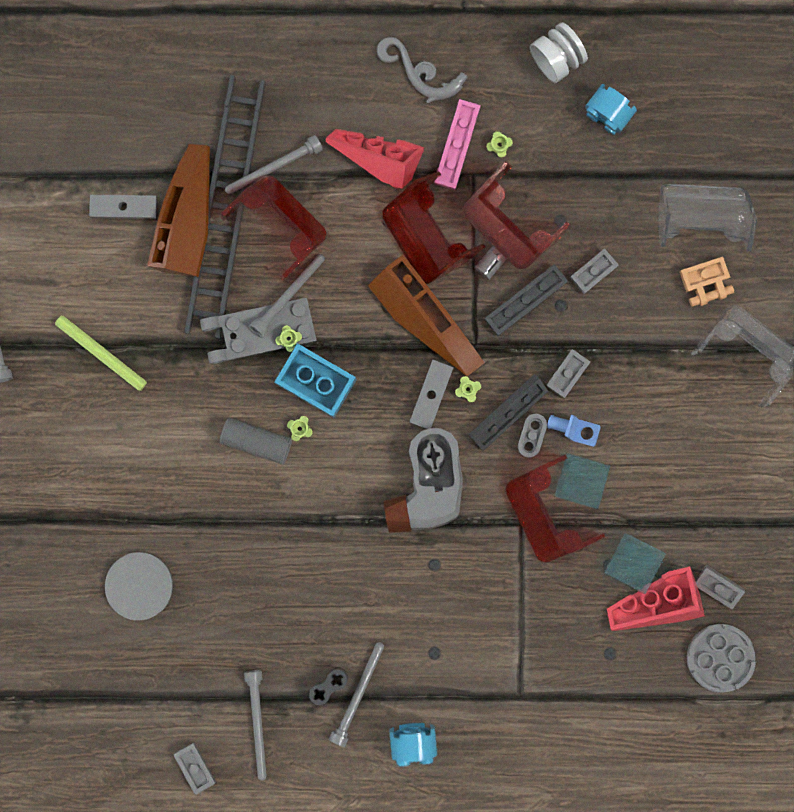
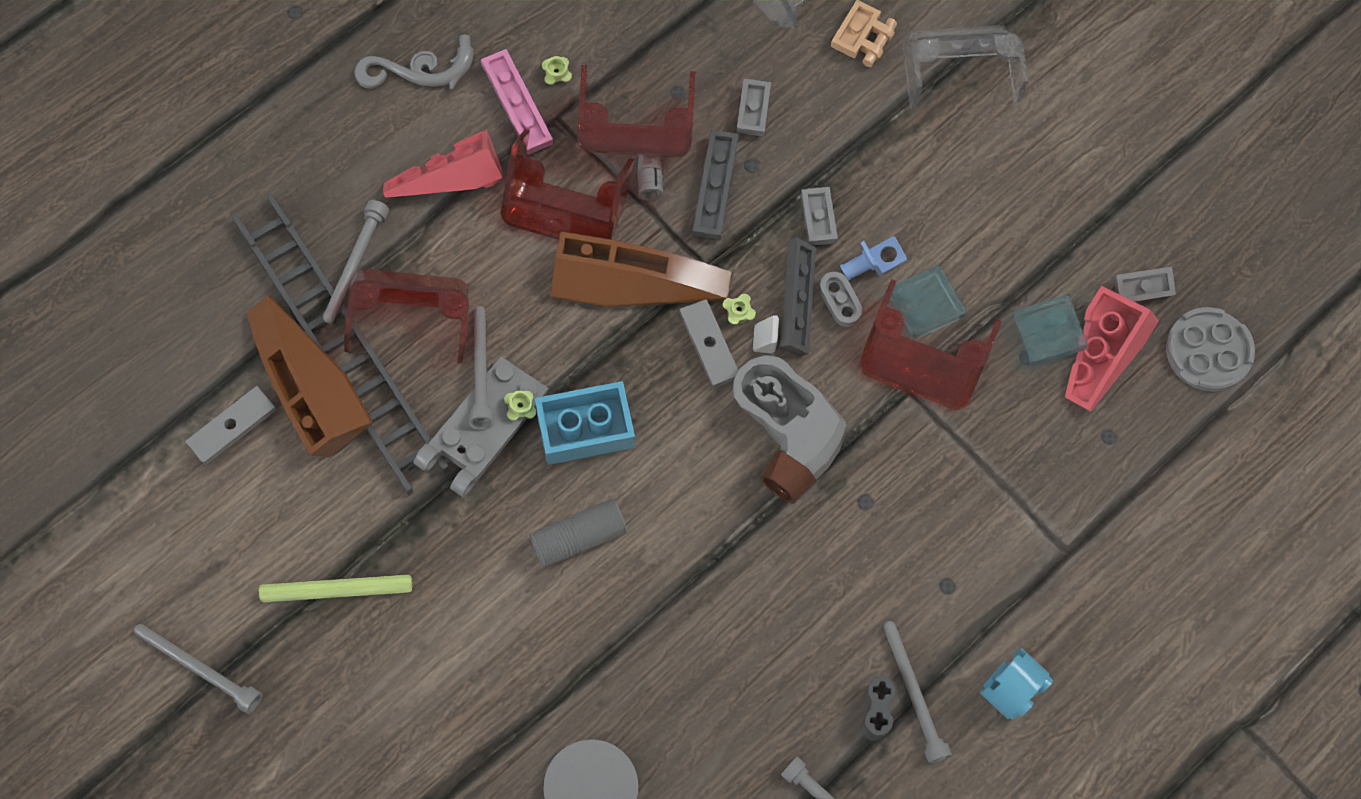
camera: 50 degrees left, 15 degrees down
(302, 422) = (609, 477): yellowish green plate -> none
(468, 418) = (766, 335): none -> white slope

